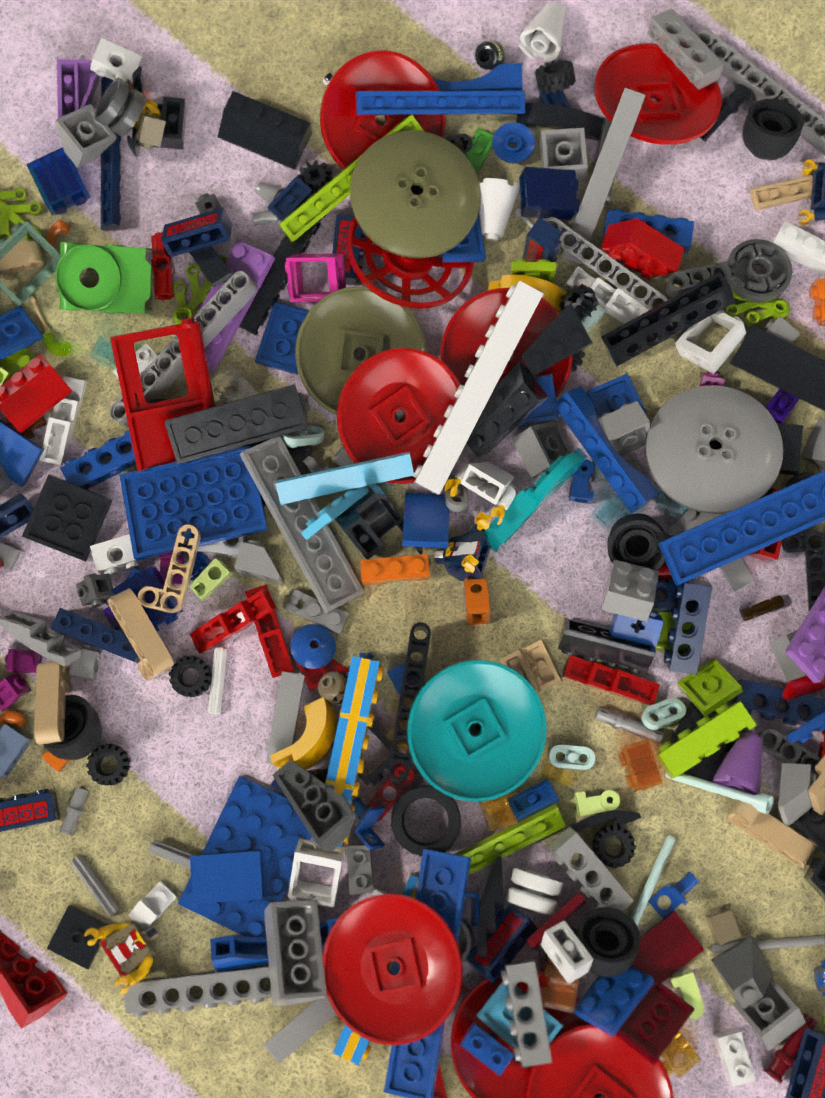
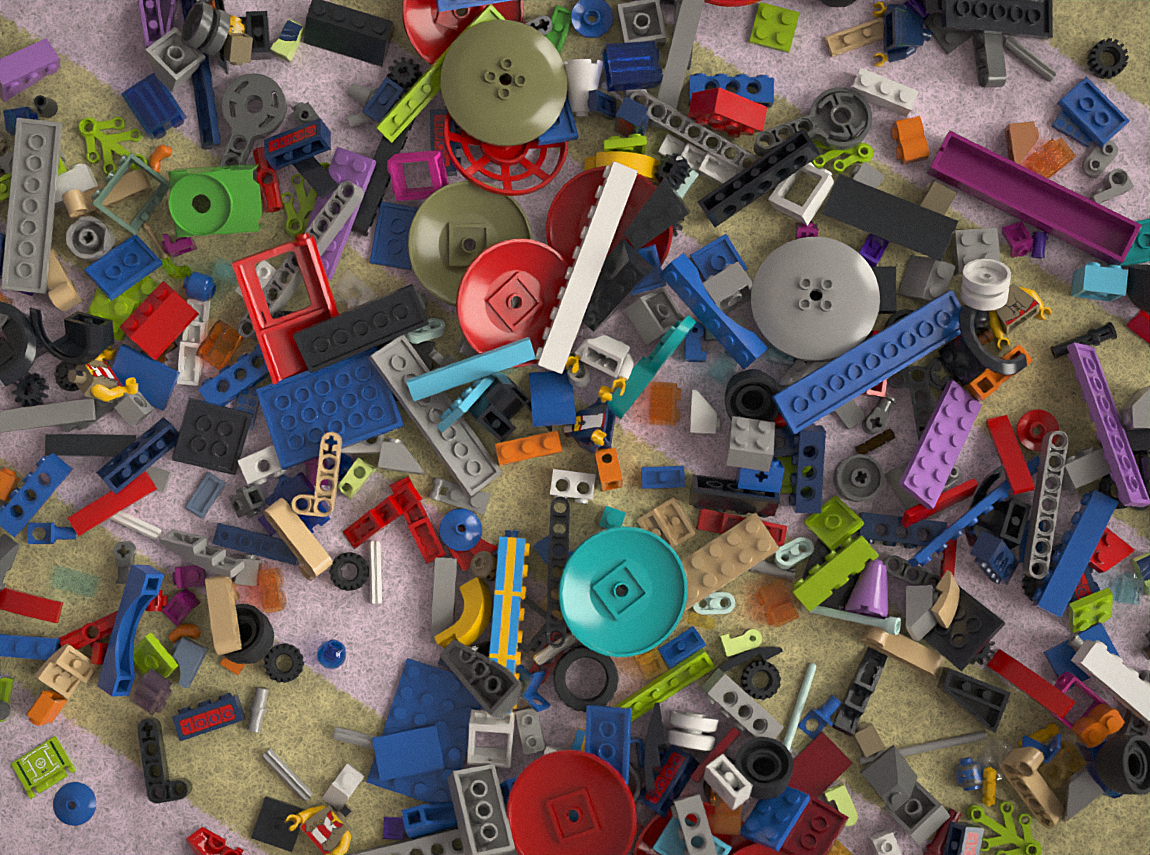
camera: 15 degrees left, 5 degrees up
(52, 579) = (205, 495): none -> sand blue tile
(62, 324) = (181, 246): none -> magenta bracket
(77, 365) = (199, 286): none -> blue head
(89, 425) = (219, 345): none -> clear orange brick
(107, 678) = (273, 596): none -> clear orange brick
(111, 488) = (248, 402): none -> blue tile
(146, 207) = (246, 124): none -> dark grey beam
(159, 761) = (330, 655): none -> clear blue piece
(200, 958) = (393, 828): none -> dark purple tile
(202, 133) = (288, 40): none -> yellowish green leg
(392, 787) = (547, 653): none -> white axle
(438, 608) = (573, 480): none -> white brick
(474, 651) = (612, 518): none -> teal brick
(513, 228) = (602, 104): none -> dark blue plate
(533, 617) = (663, 477): none -> blue plate
(542, 541) = (663, 404): none -> clear orange brick
(582, 558) = (702, 416): none -> white slope
(591, 710) = (727, 558): none -> tan plate
(699, 174) = (774, 27): none -> lime plate
(719, 872) = (859, 691): none -> black slope
(754, 640) = (869, 472): none -> dark grey wheel
(769, 578) = (879, 414): none -> dark grey connector

